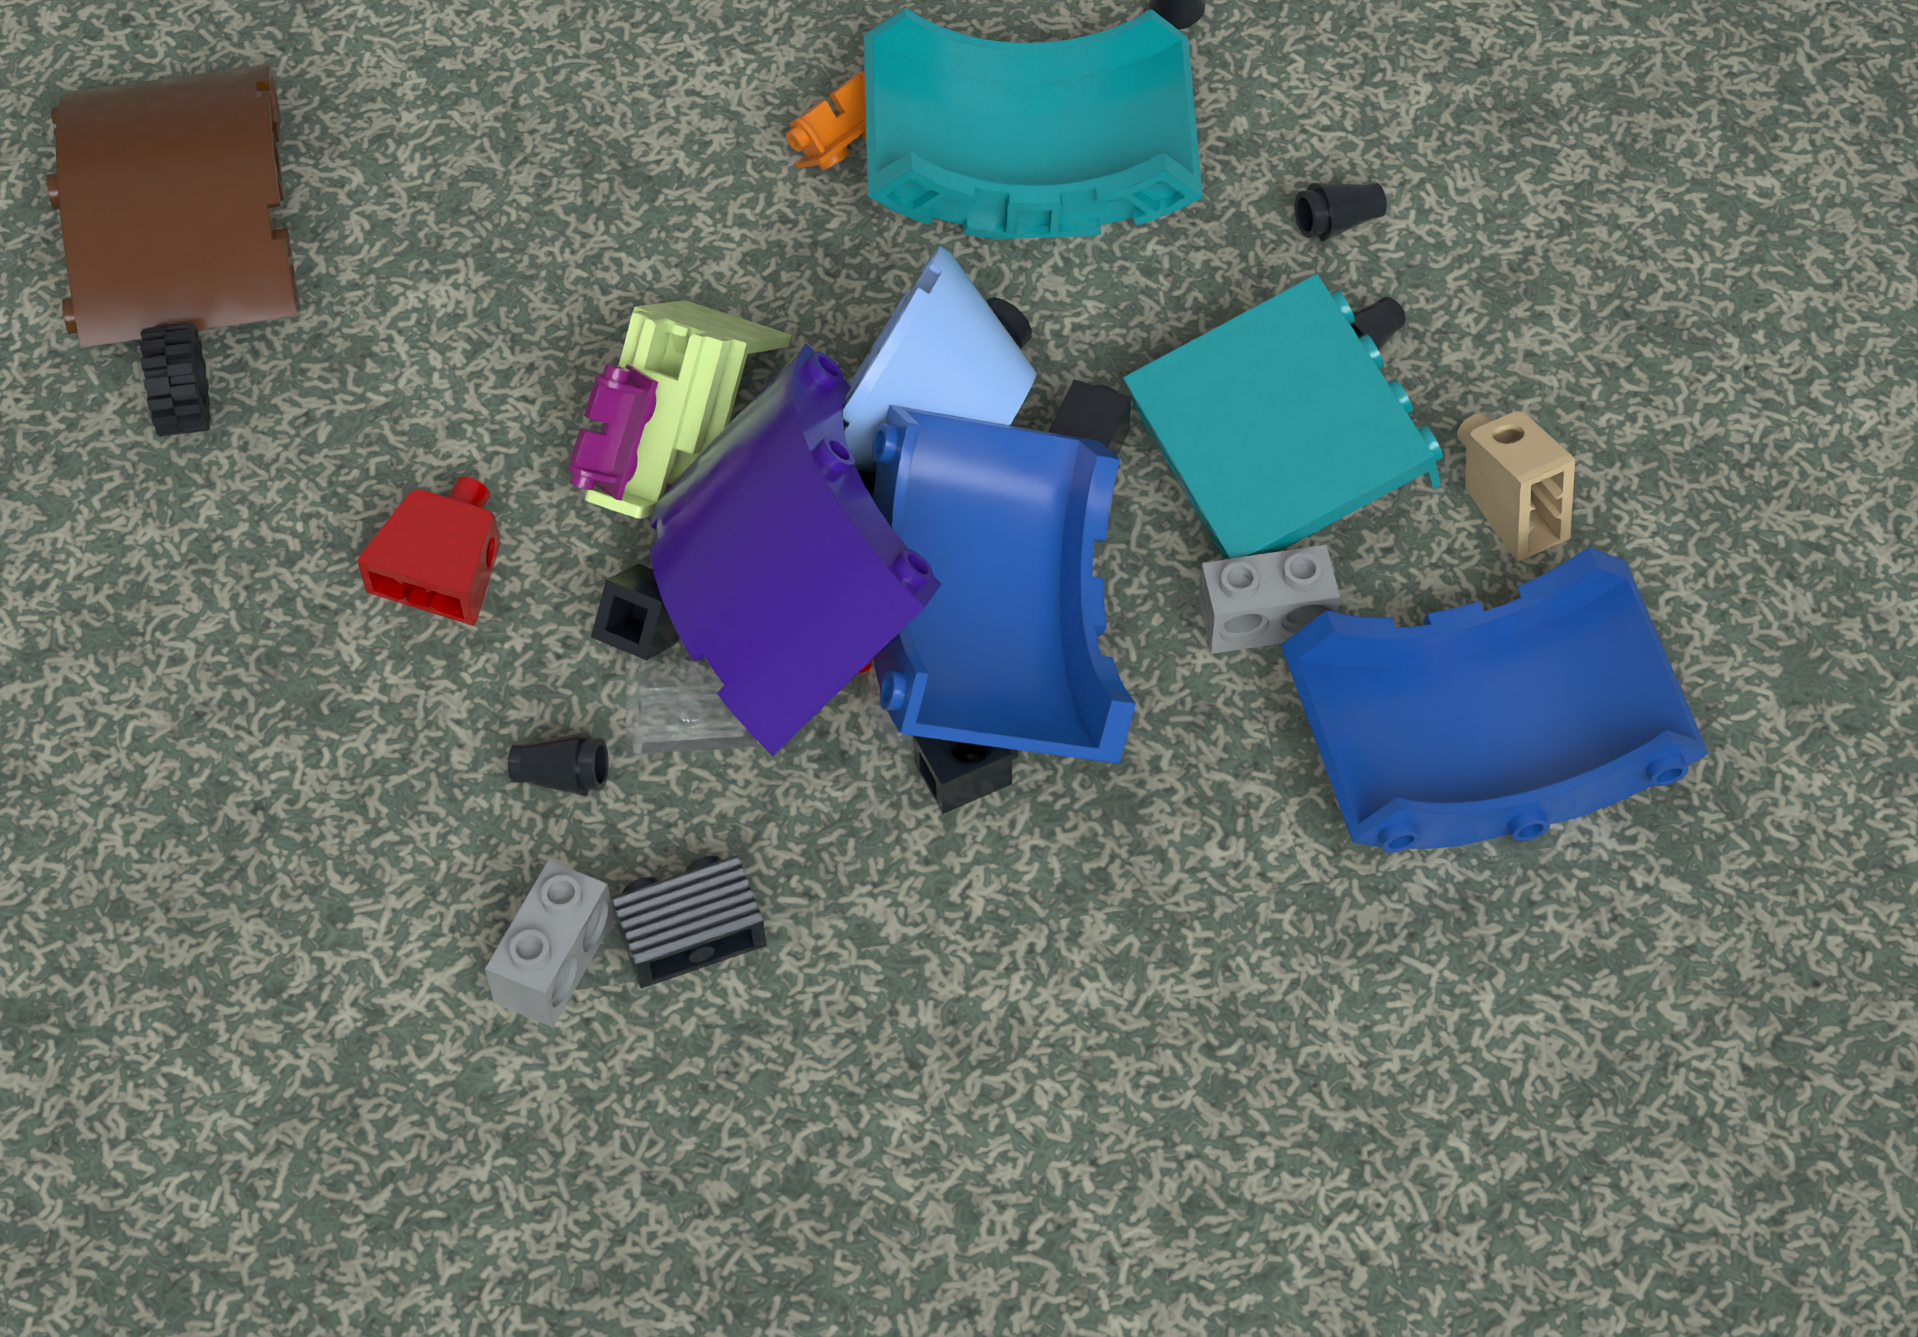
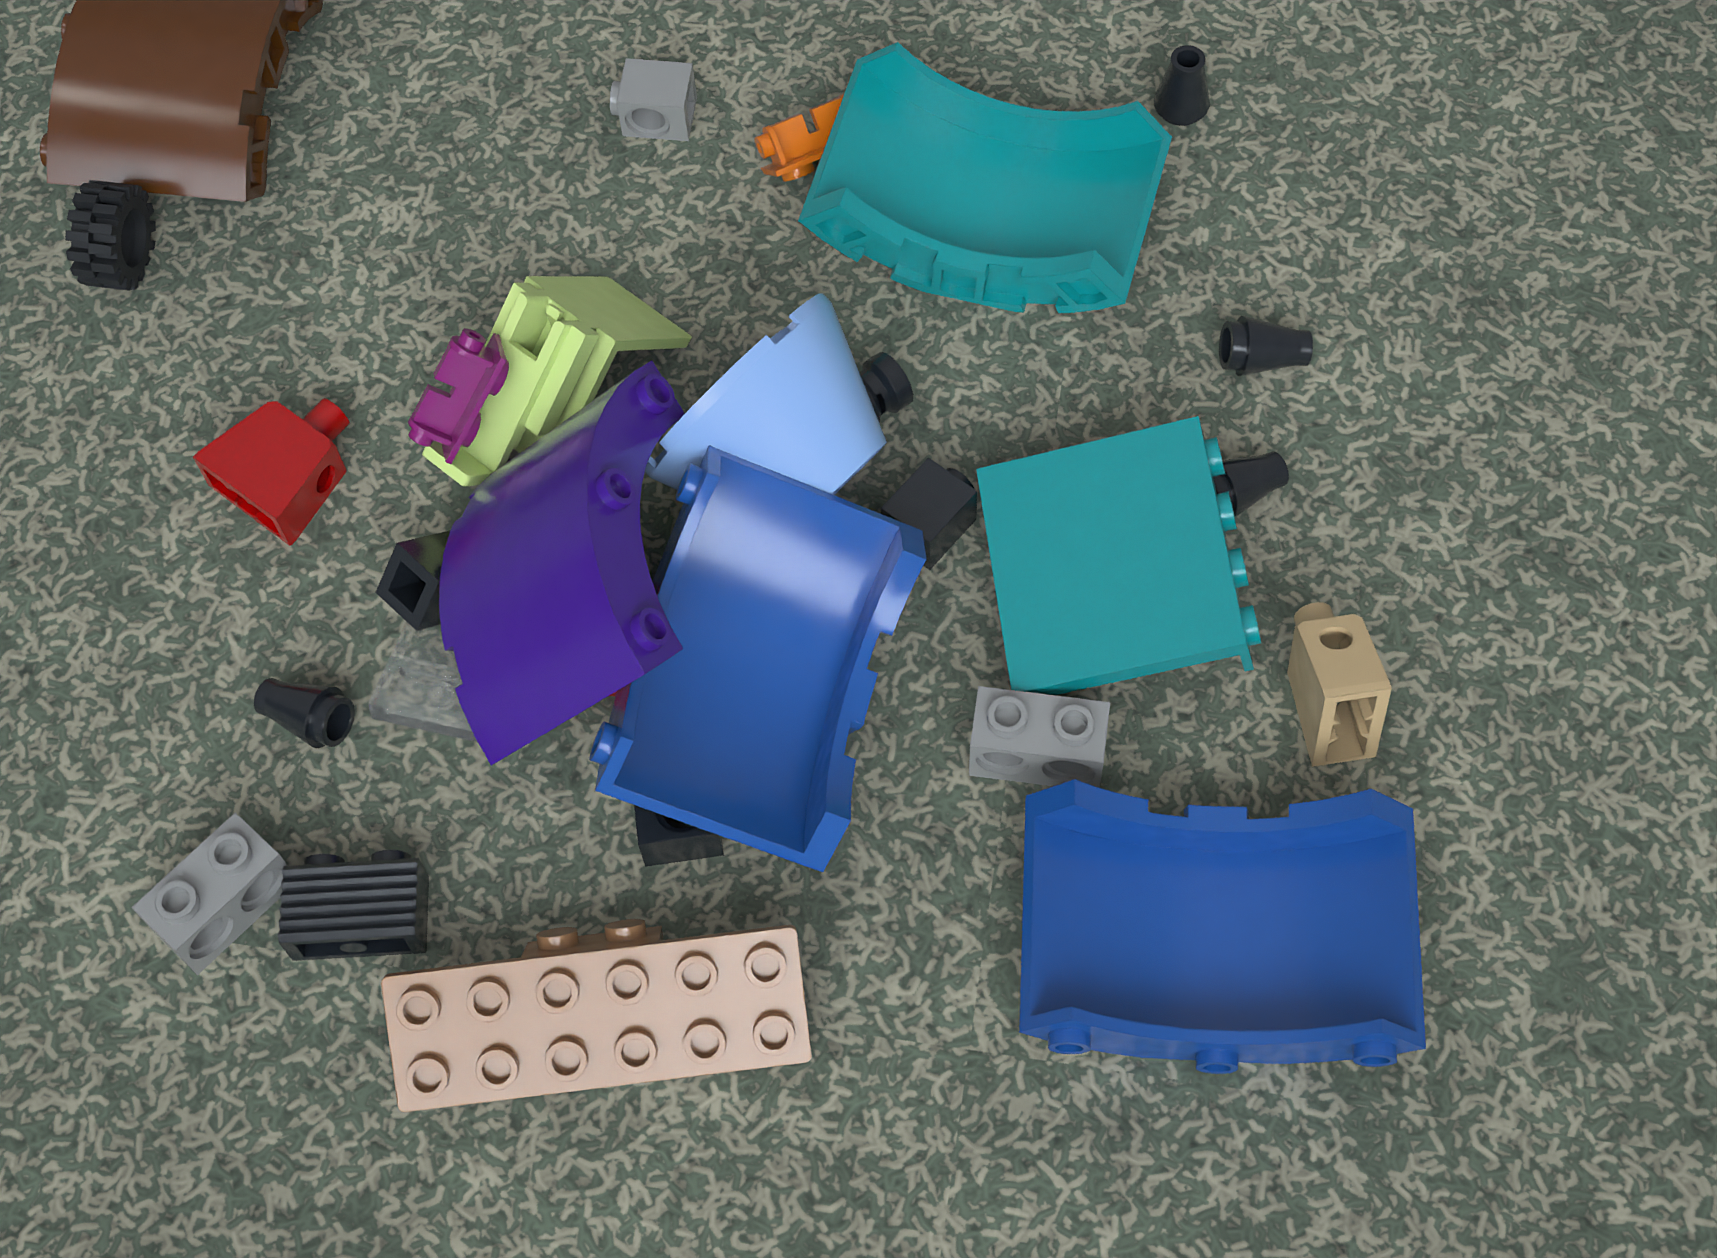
camera: 20 degrees right, 5 degrees up
(668, 122) = (655, 99): none -> light grey brick
(956, 945) = (596, 1014): none -> bracket

